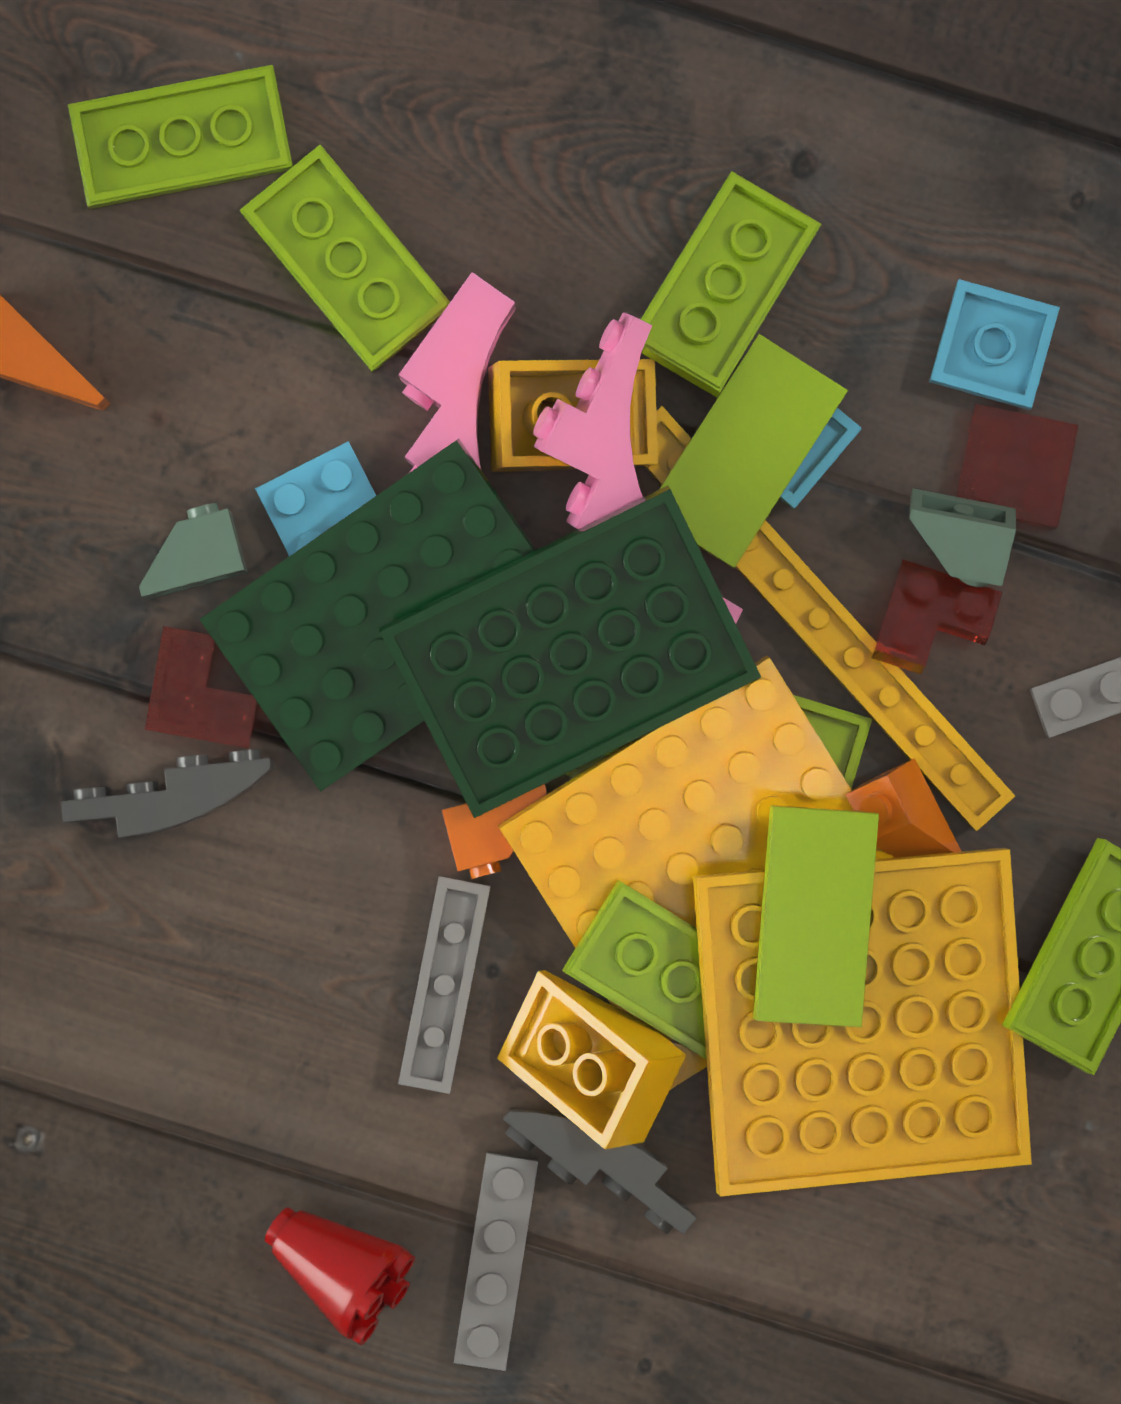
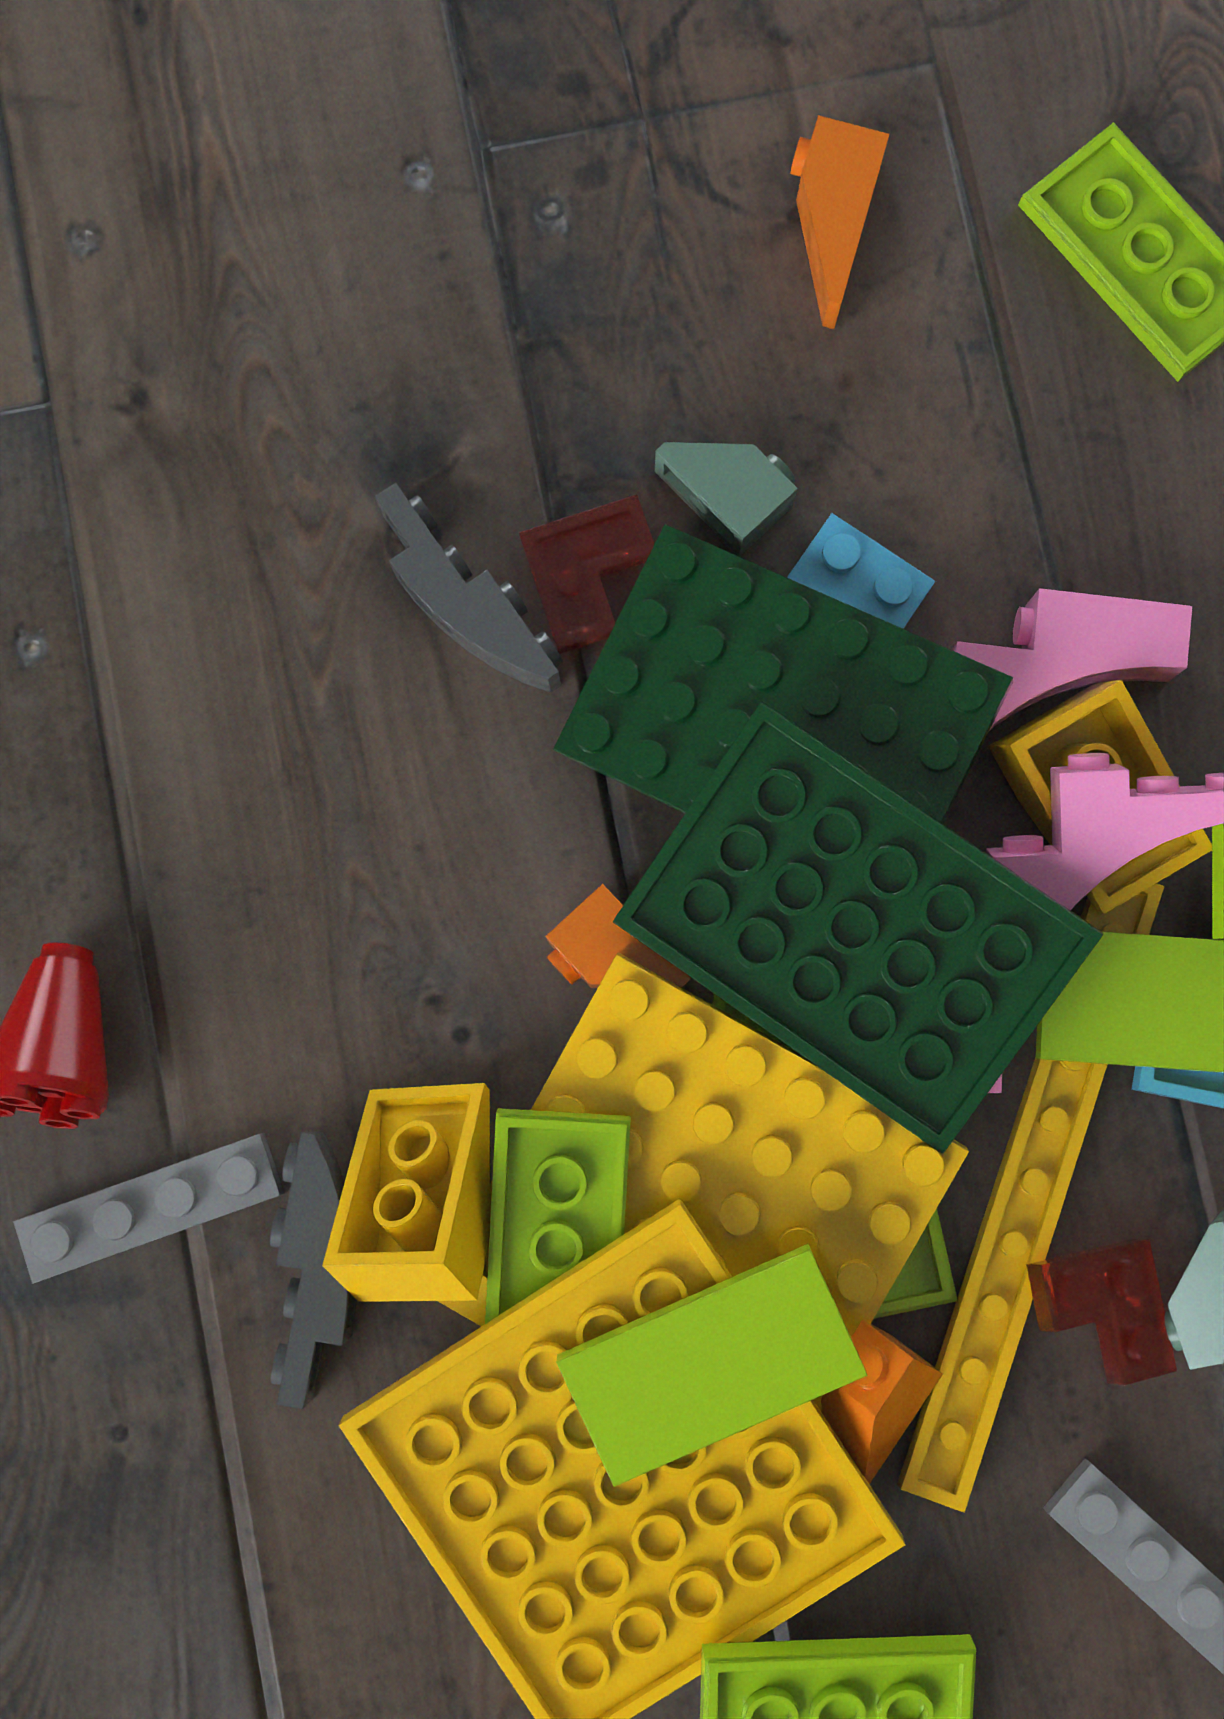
camera: 60 degrees right, 5 degrees down
(346, 258) = (1120, 478): lime tile -> none
(444, 985) = (416, 990): light grey plate -> none

